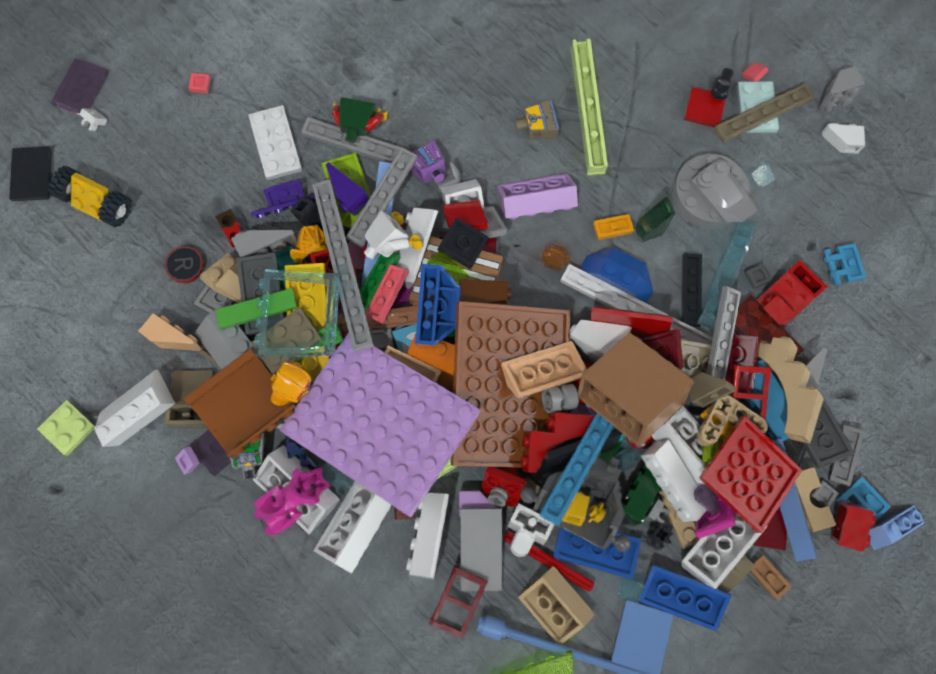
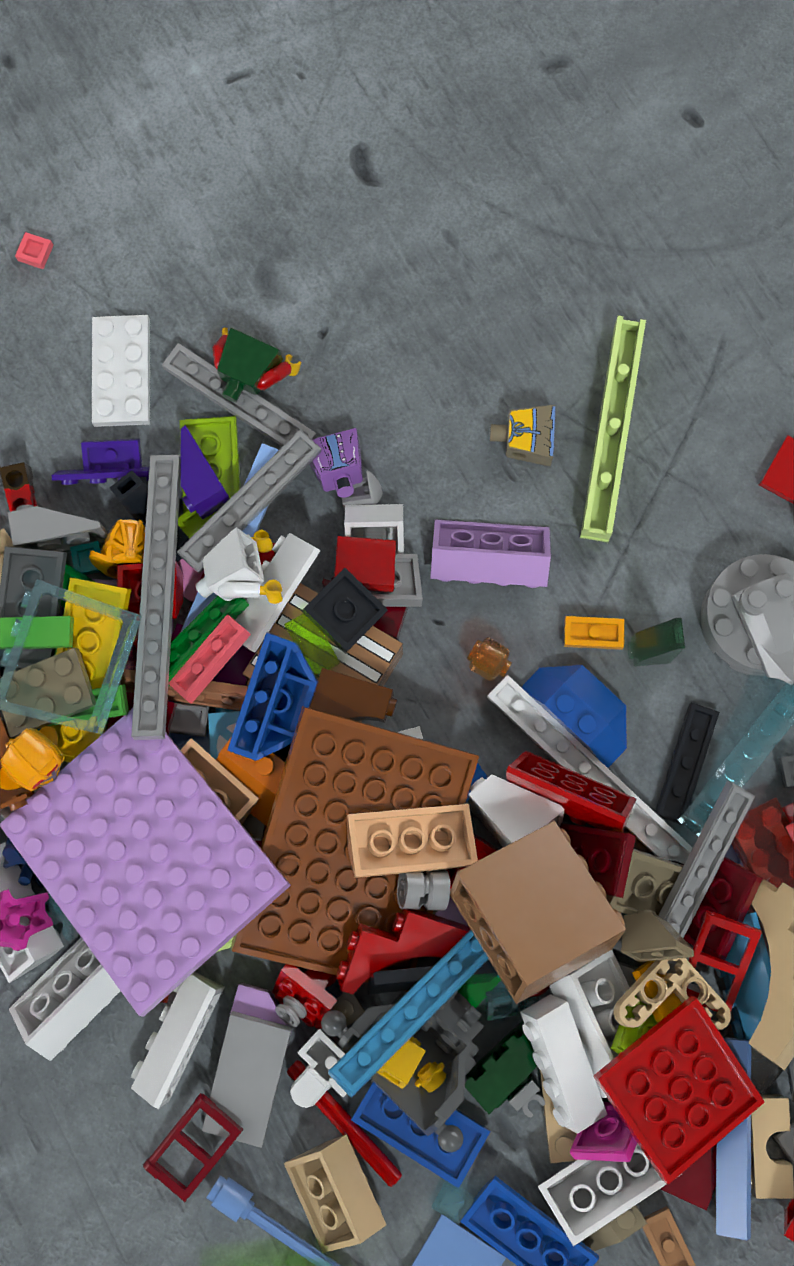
camera: 25 degrees right, 5 degrees up
(662, 530) = (526, 1140): black gear -> none
(707, 499) = (600, 1107): clear purple cone -> none

